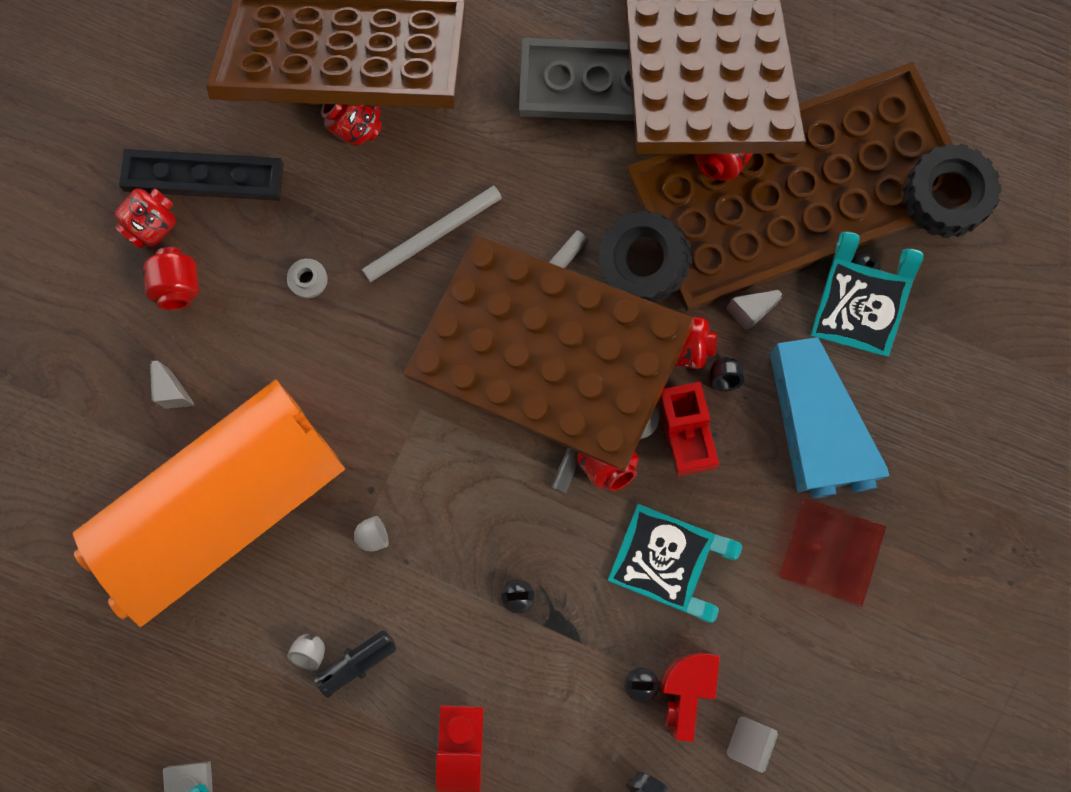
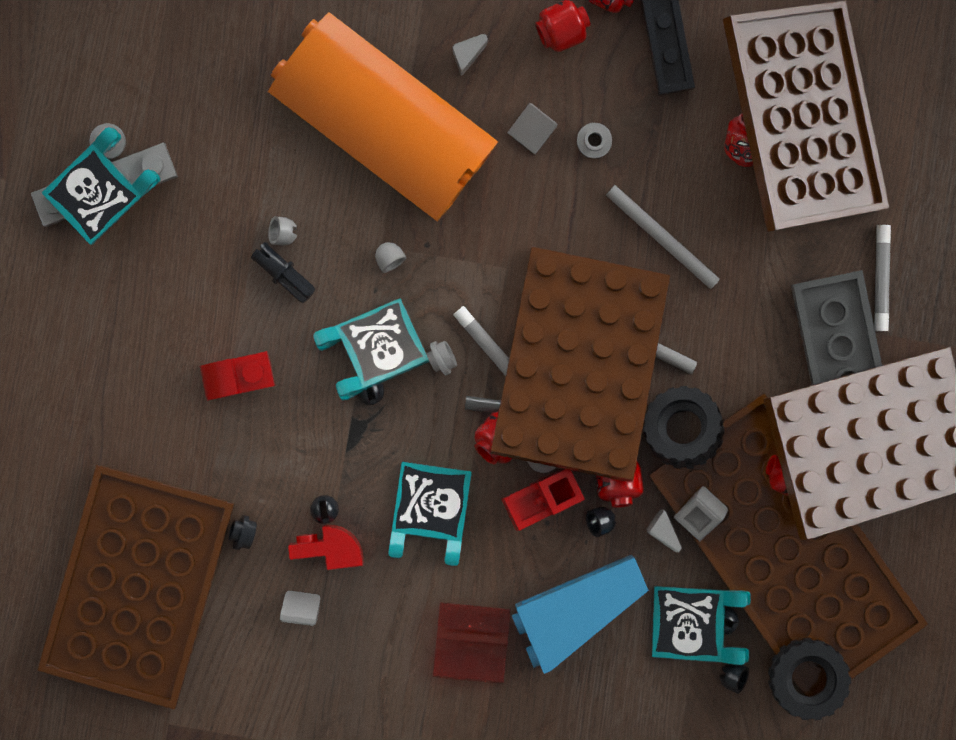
camera: 80 degrees right, 10 degrees up
(273, 340) = (532, 128): none -> light grey slope
(469, 573) = (378, 345): none -> flag
(493, 453) = (482, 338): none -> light grey bar
(500, 503) = (441, 357): none -> light grey plate
(533, 24) = (882, 277): none -> light grey bar
(744, 261) = (701, 513): none -> light grey slope
(931, 273) = (735, 677): none -> black hinge

